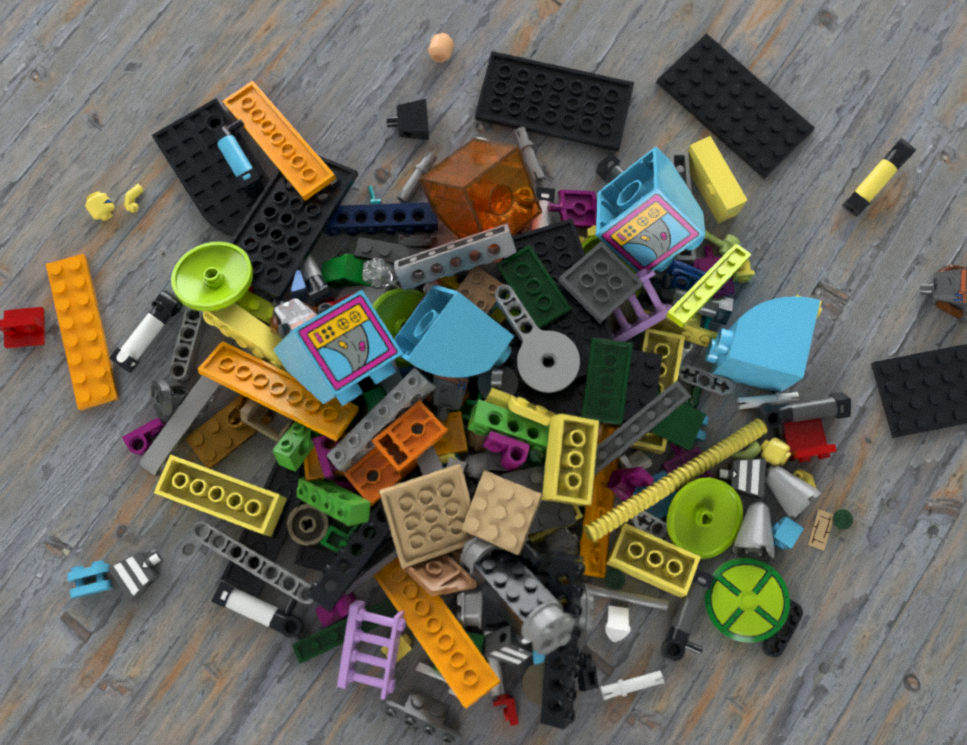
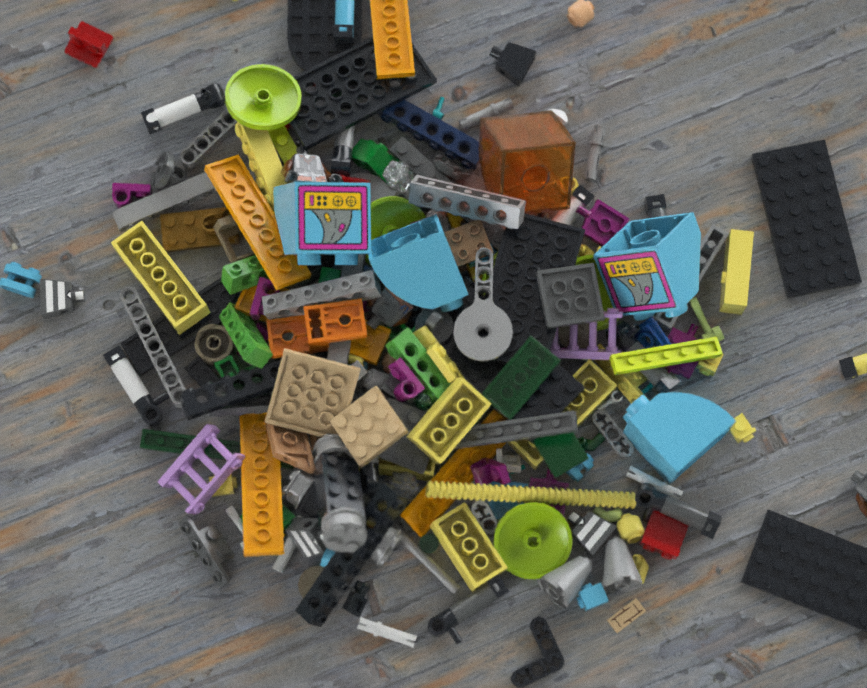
camera: 35 degrees right, 0 degrees up
(82, 332) = (132, 76): light orange plate -> none
(298, 287) = (325, 149): light blue slope -> none
(339, 612) = (193, 426): magenta plate -> none
(510, 711) = (278, 589): red bracket -> none
(534, 287) = (514, 266): dark green tile -> none
(554, 101) = (648, 119): black plate -> none
(617, 623) = (407, 578): white tile -> none
(747, 600) = (523, 627): dish -> none
(842, 519) = (648, 617): clear green plate -> none

